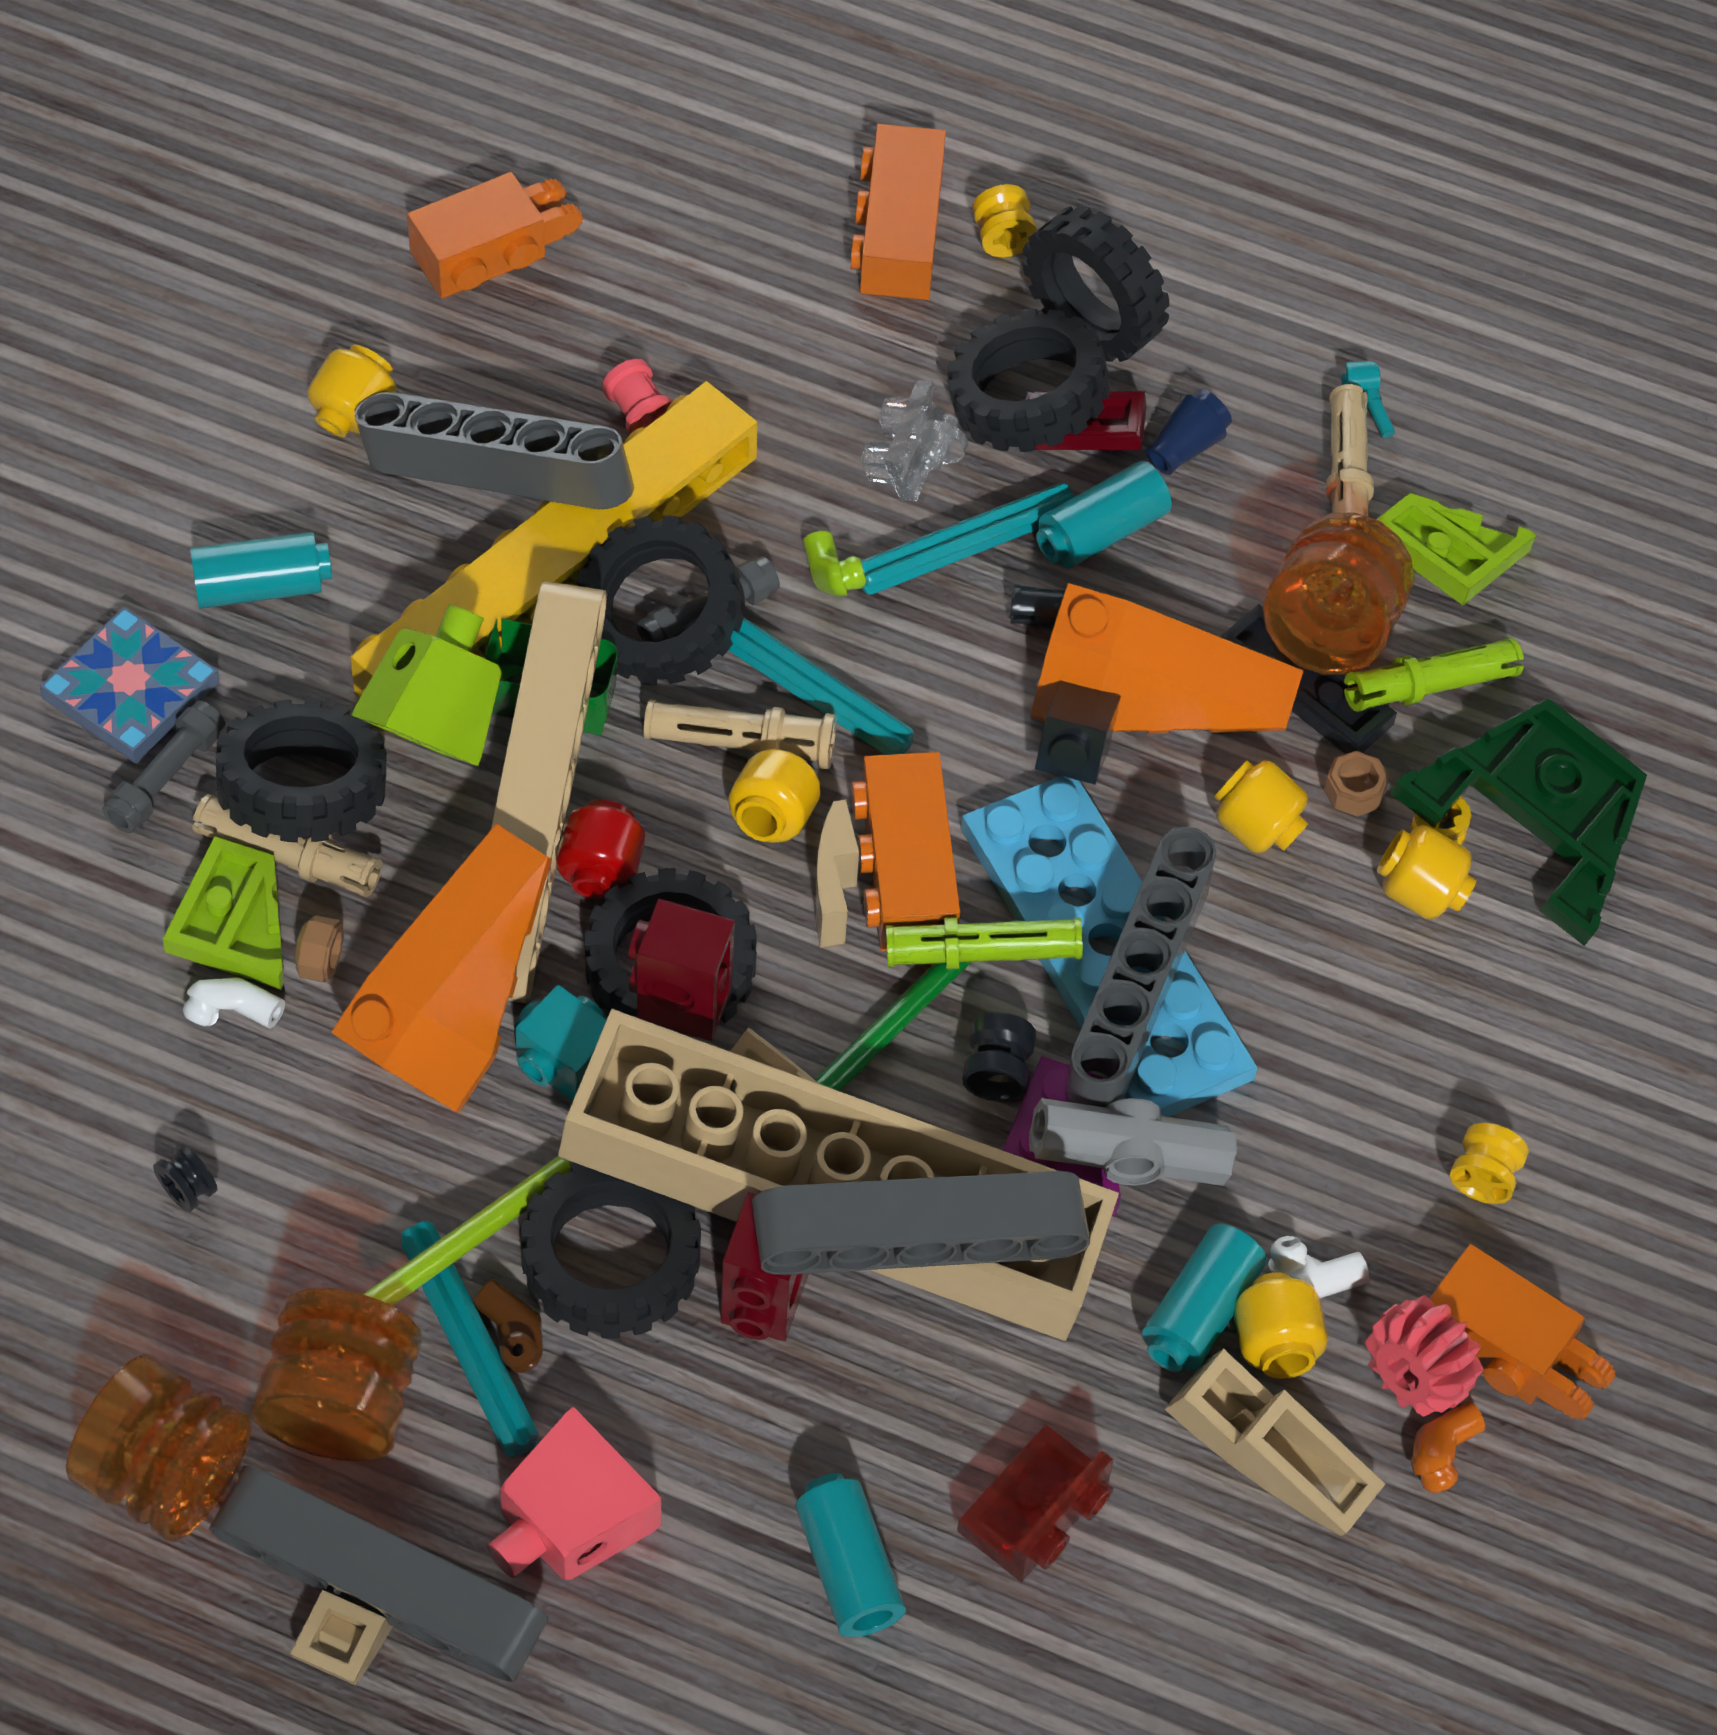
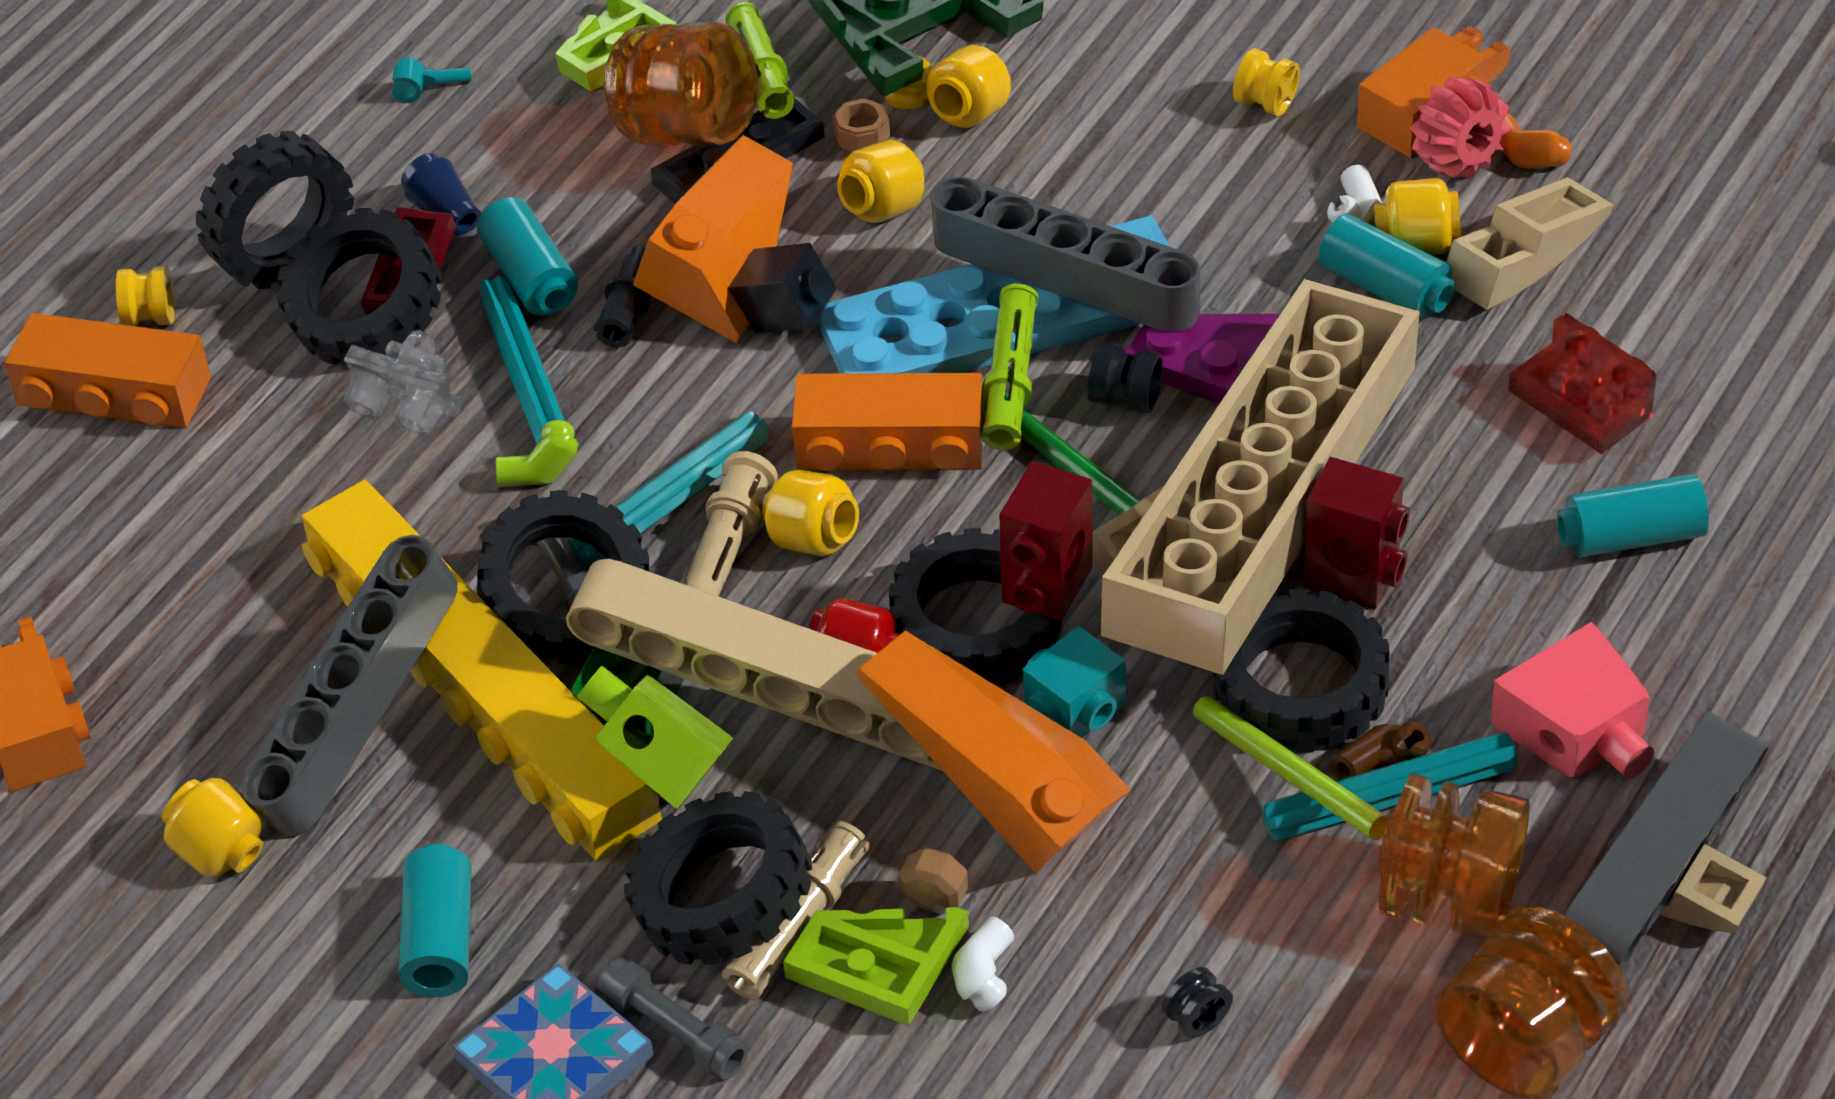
camera: 75 degrees left, 10 degrees down
(635, 393) = (288, 591): coral bush -> none
(835, 871) = (918, 483): tan slope -> none
(920, 1222) = (1356, 379): dark grey beam -> none
(1132, 1142) = (1234, 287): light grey piece -> none
(1349, 484) = (568, 99): tan pin -> none

